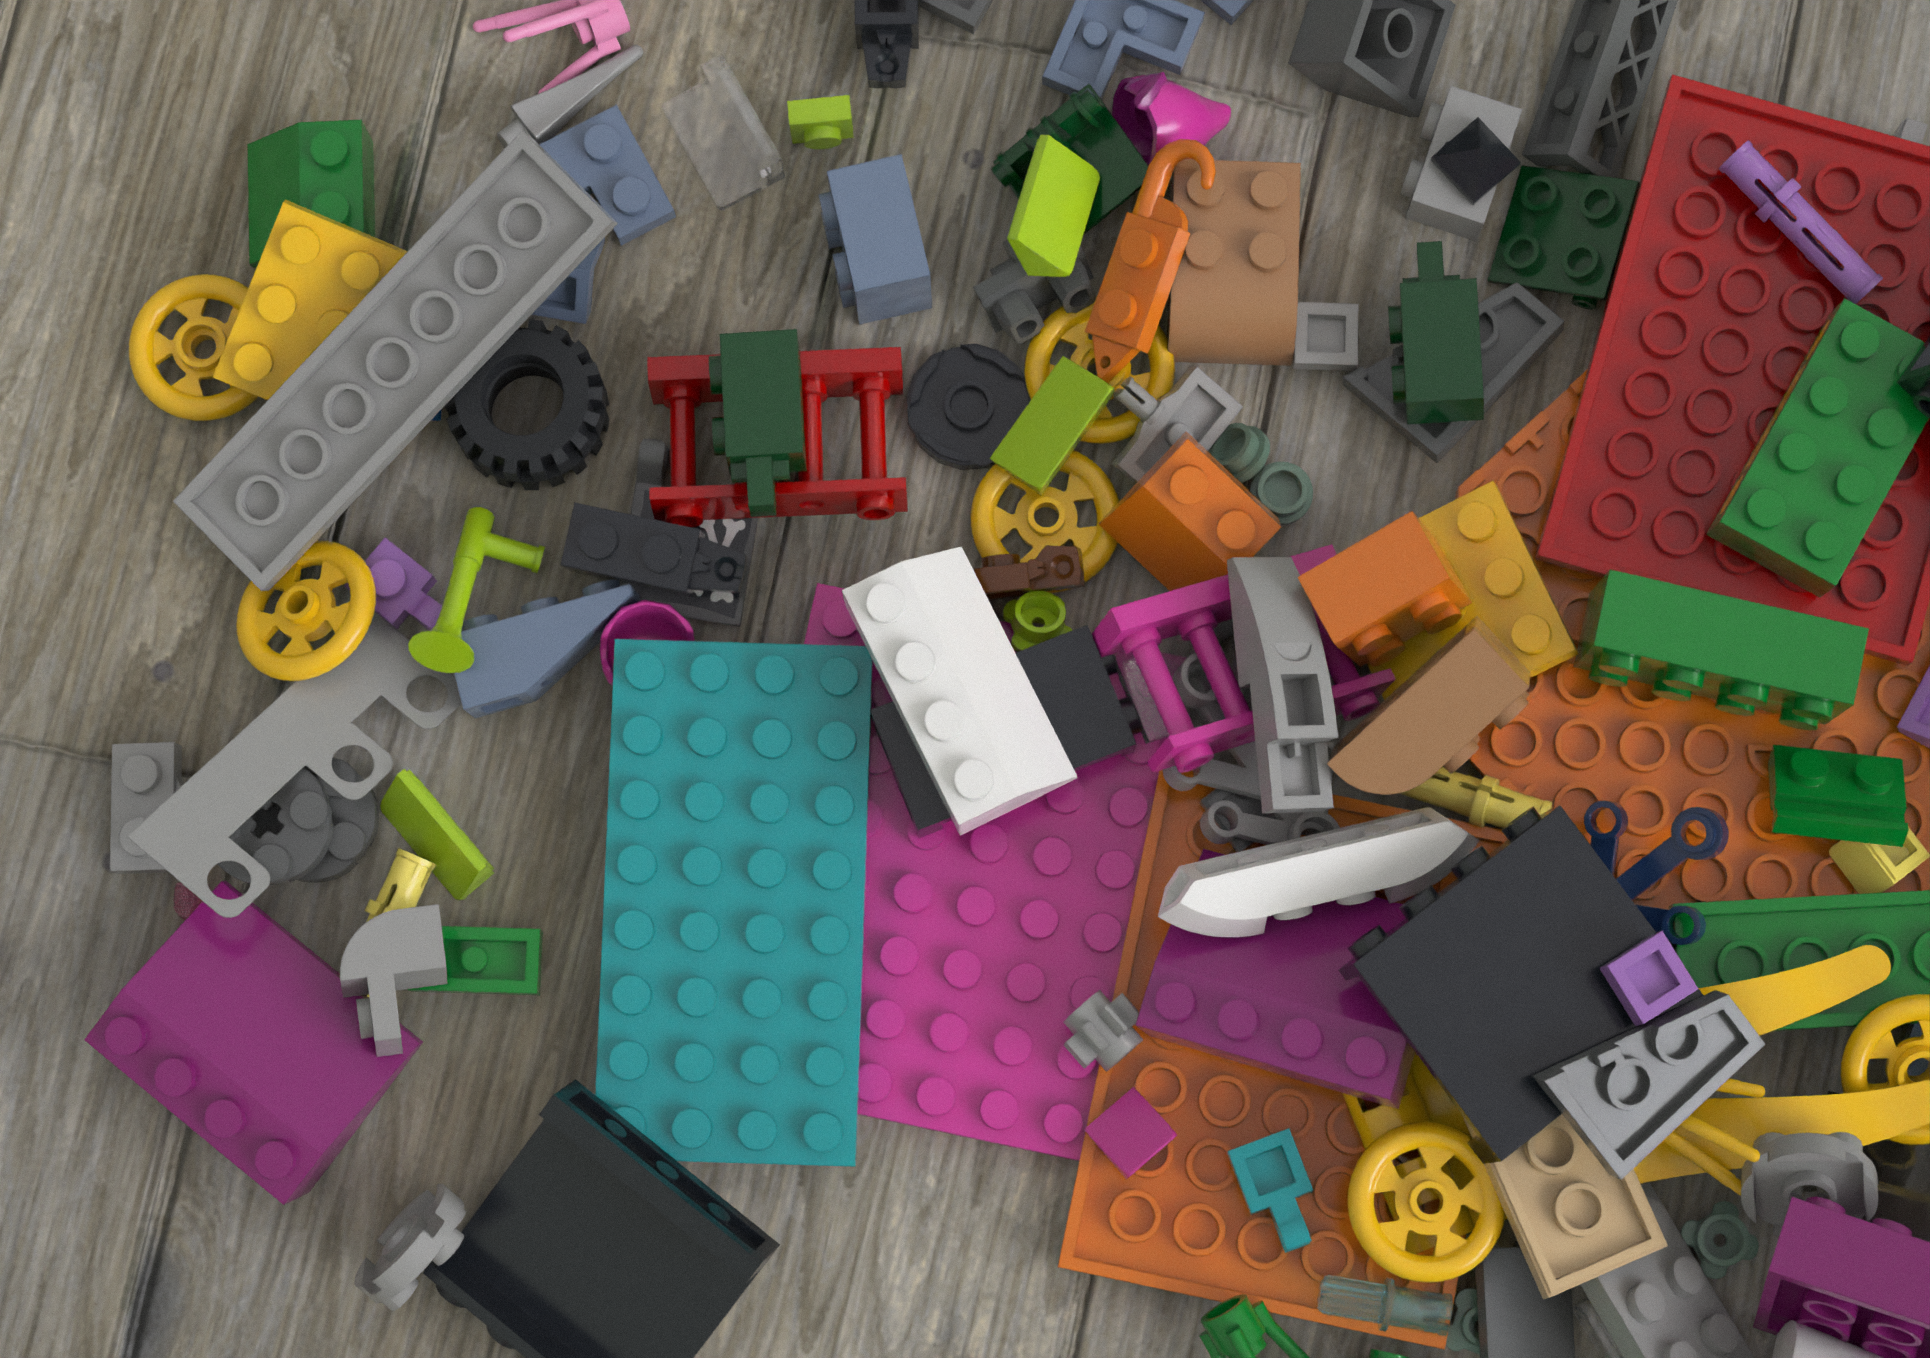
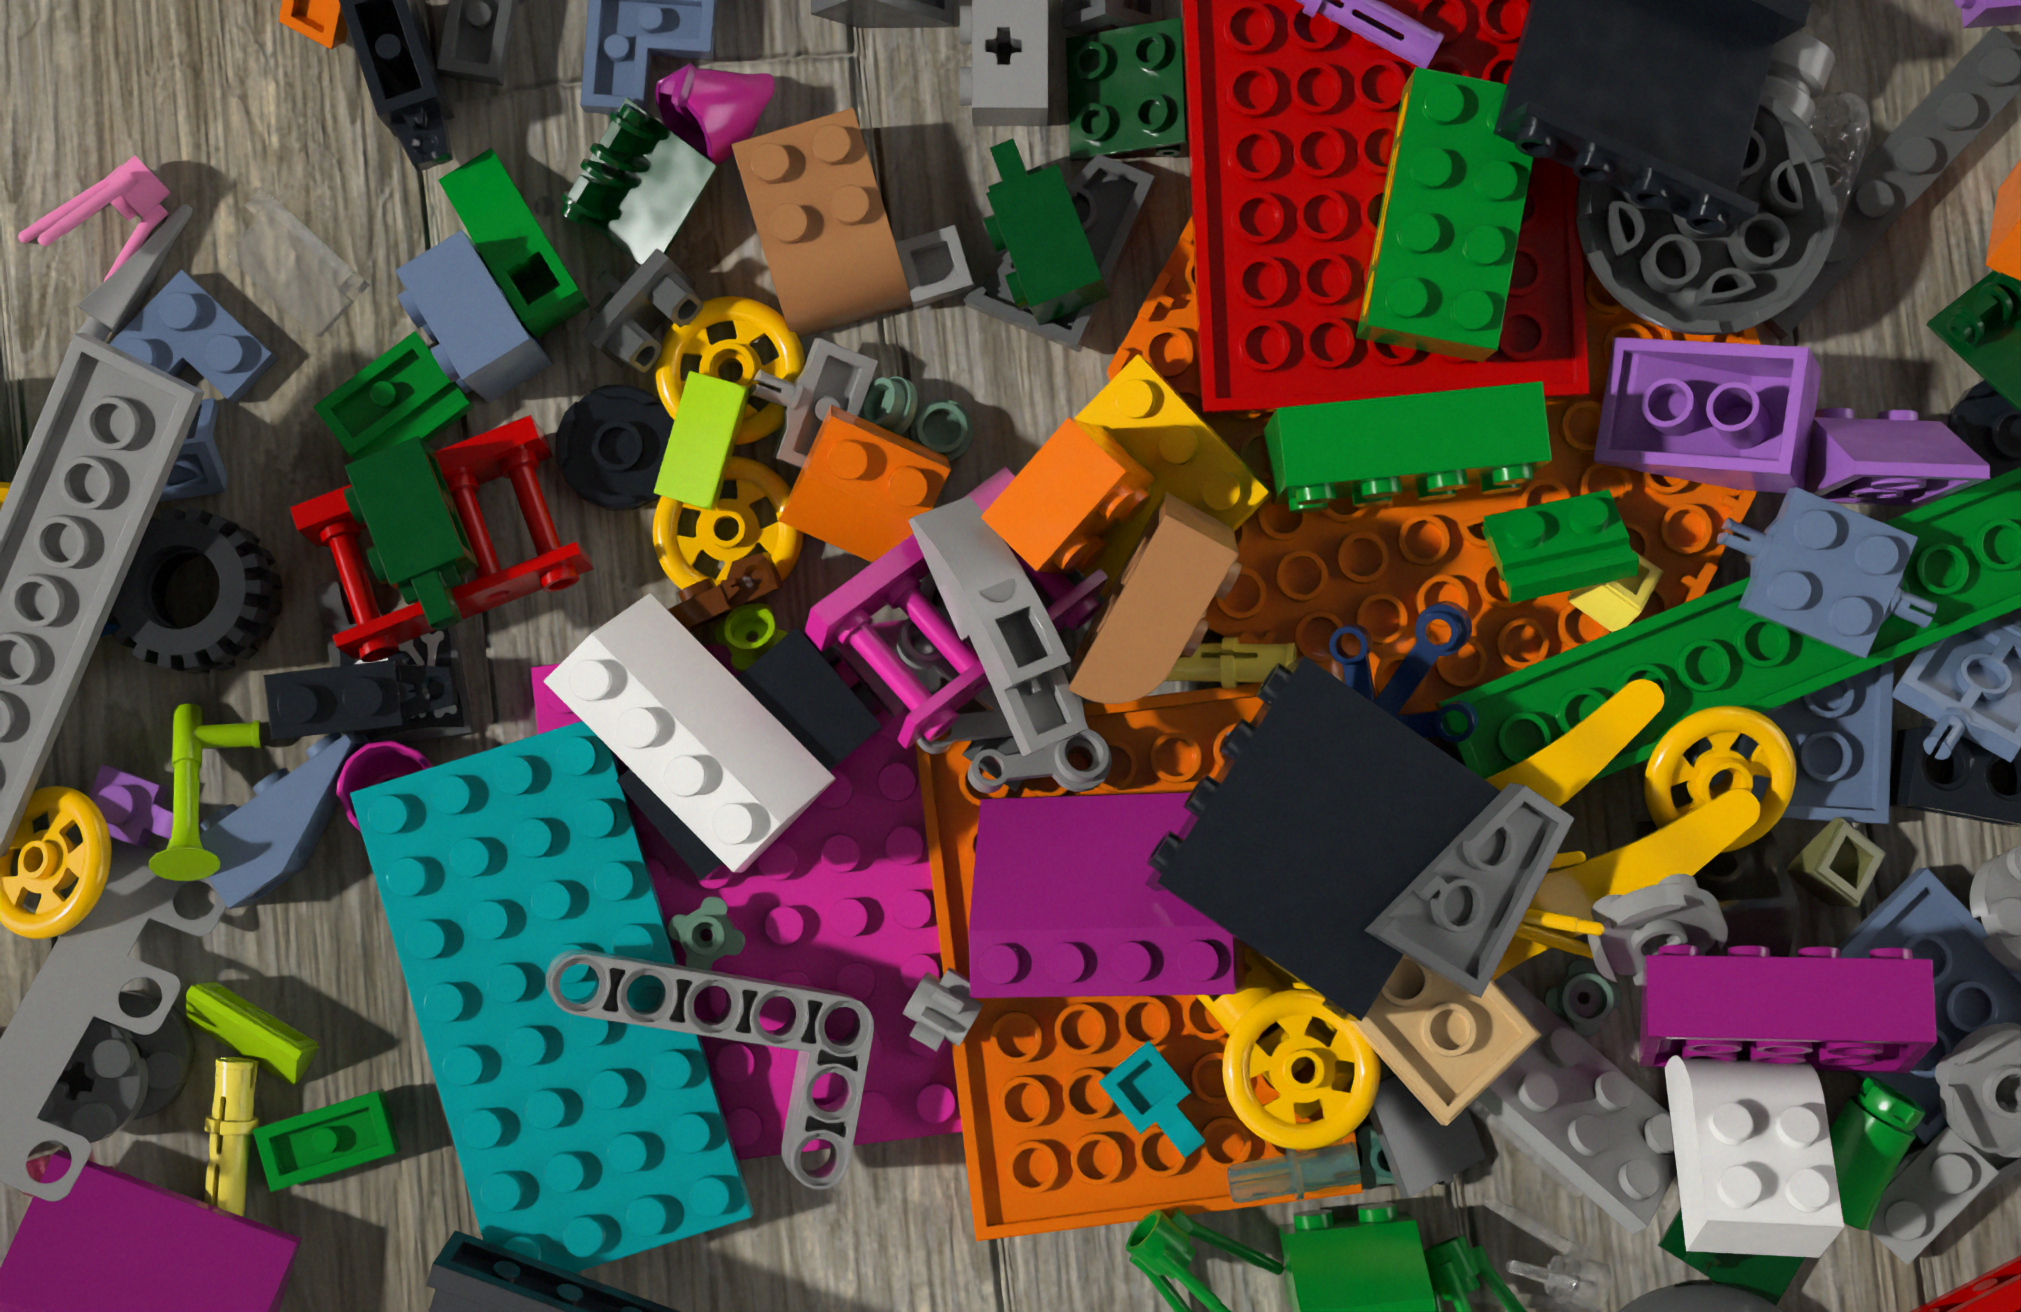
camera: 20 degrees left, 5 degrees up
(389, 955) = (232, 1176): light grey brick -> none
(774, 291) = (393, 401): none -> green plate
(820, 121) = (382, 220): lime plate -> none
(893, 903) = (711, 916): none -> sand green plate
(912, 975) = (741, 1023): none -> light grey beam
(938, 182) = (513, 244): none -> green slope
(1052, 209) = (629, 233): lime slope -> none
(1130, 1132) = (1001, 1094): dark pink slope -> none
(1144, 263) = (735, 254): orange plate -> none
(1286, 878) = (1072, 804): white brick -> none
(1475, 160) = (1019, 49): black slope -> none
(1648, 978) = (1444, 796): medium lavender plate -> none

